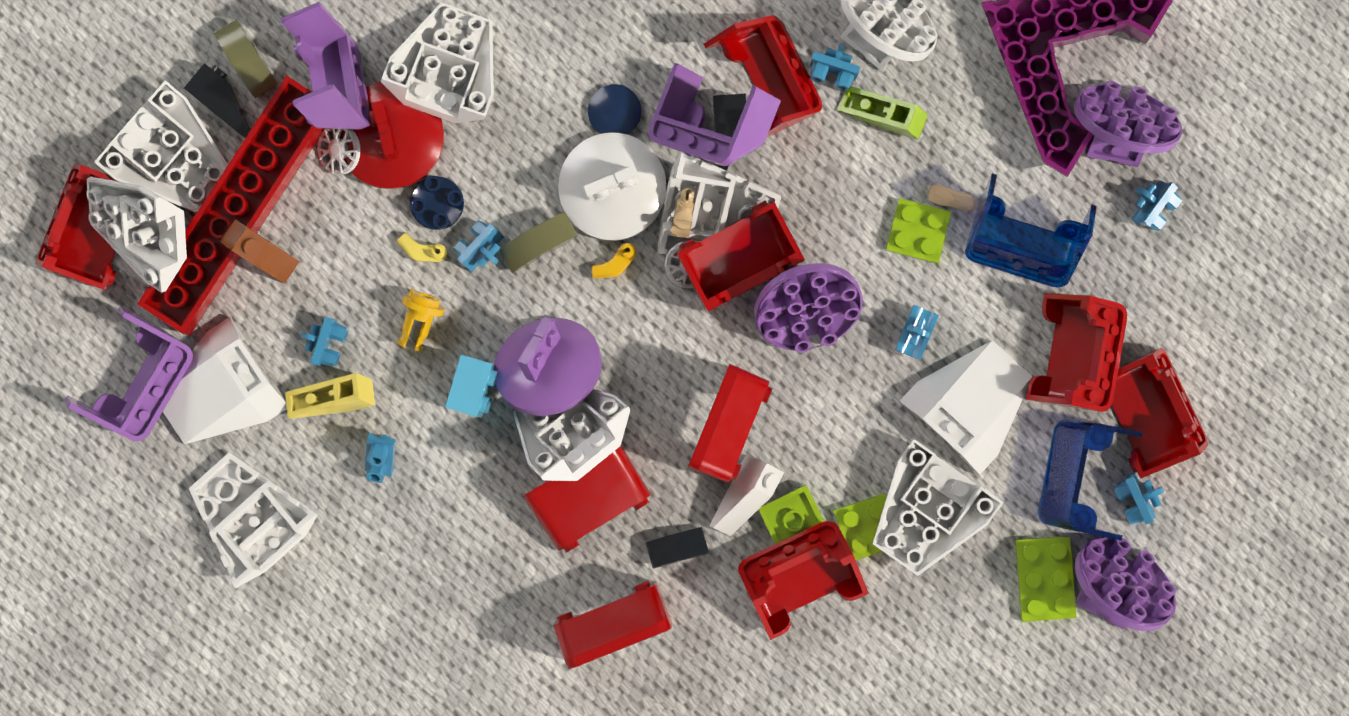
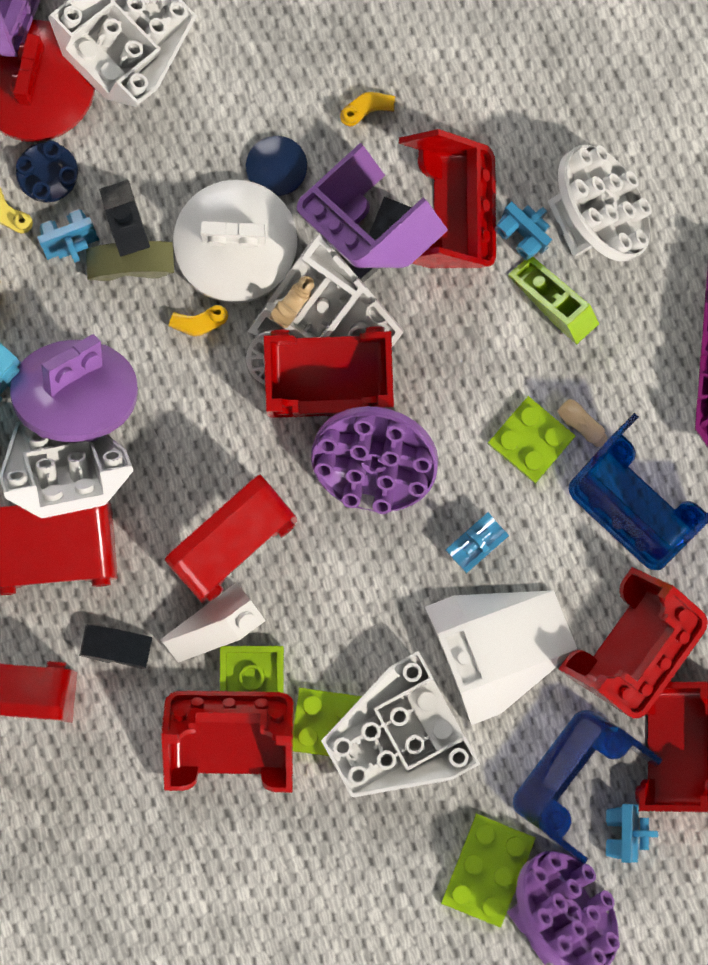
camera: 25 degrees right, 5 degrees down
(518, 210) = (124, 218): none -> black slope
(659, 29) = (365, 104): none -> yellow arm

